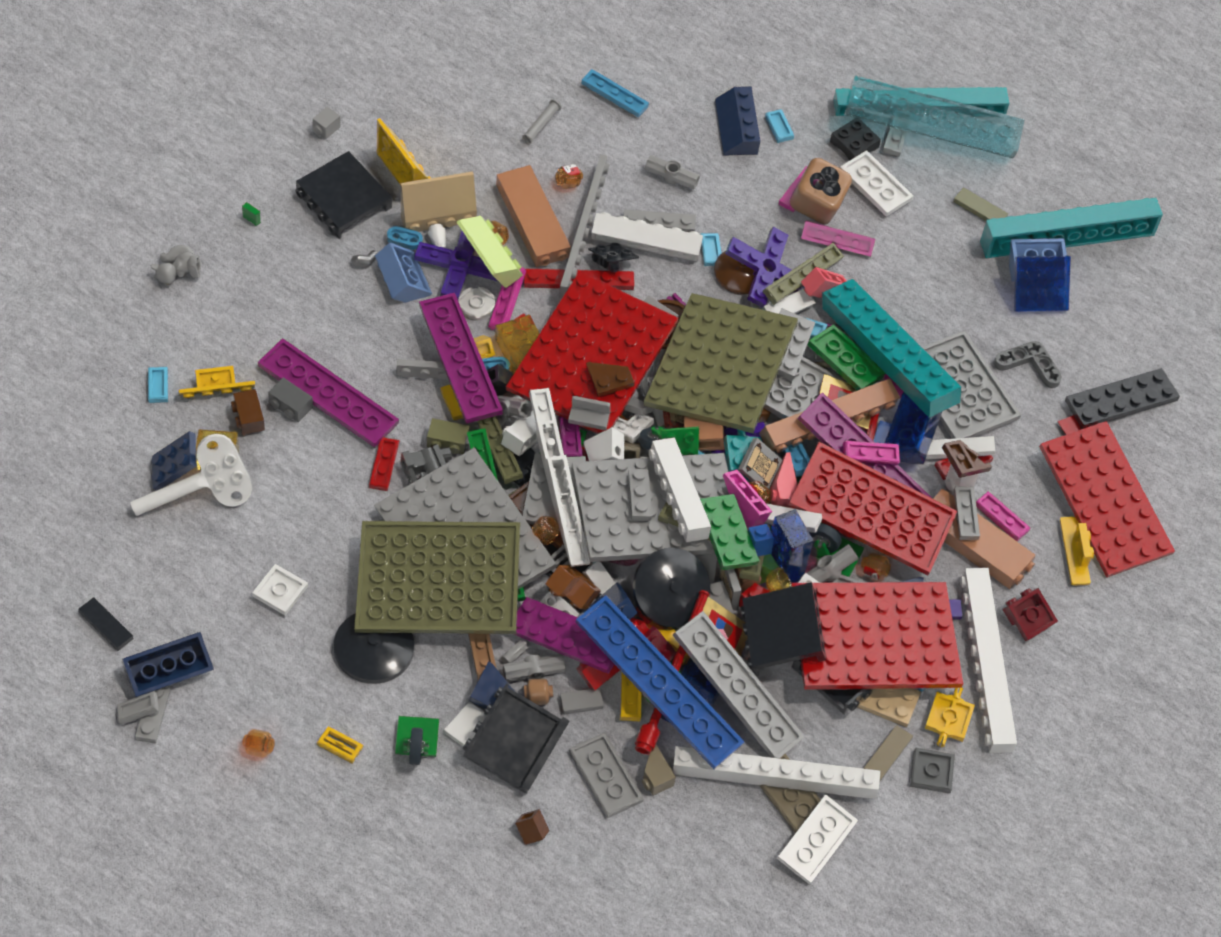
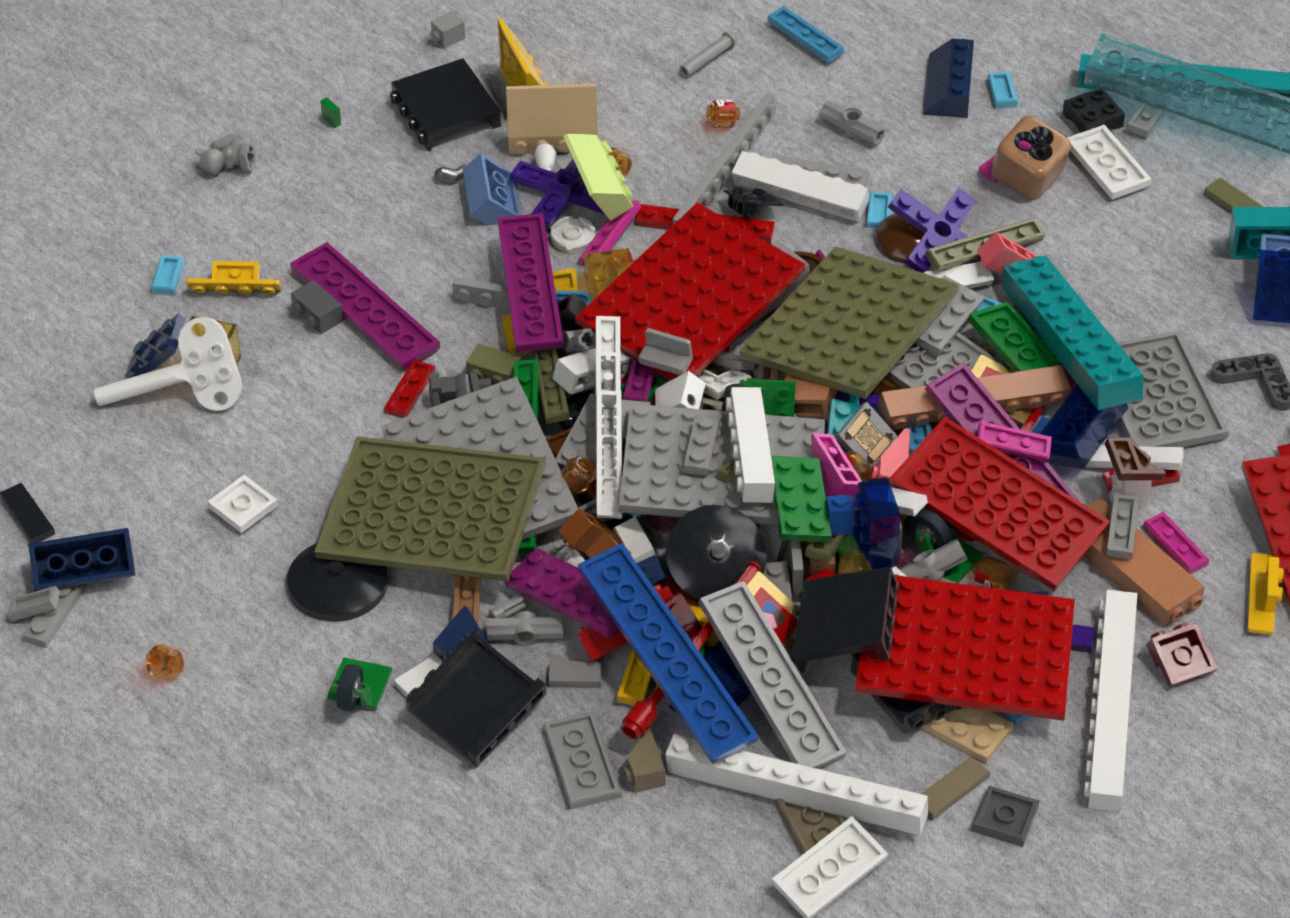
camera: 20 degrees right, 10 degrees down
(248, 412) = (262, 312): reddish brown brick -> none
(354, 753) = (263, 683): yellow tile -> none
(405, 237) = (504, 155): dark azure plate -> none
(532, 826) = (471, 801): reddish brown panel -> none
(533, 216) = (666, 149): nougat brick -> none
(538, 691) = (523, 653): medium nougat head -> none
(609, 377) = (701, 318): reddish brown wing -> none
(841, 238) = (1046, 215): dark pink plate -> none
(949, 716) = (1044, 756): yellow plate -> none

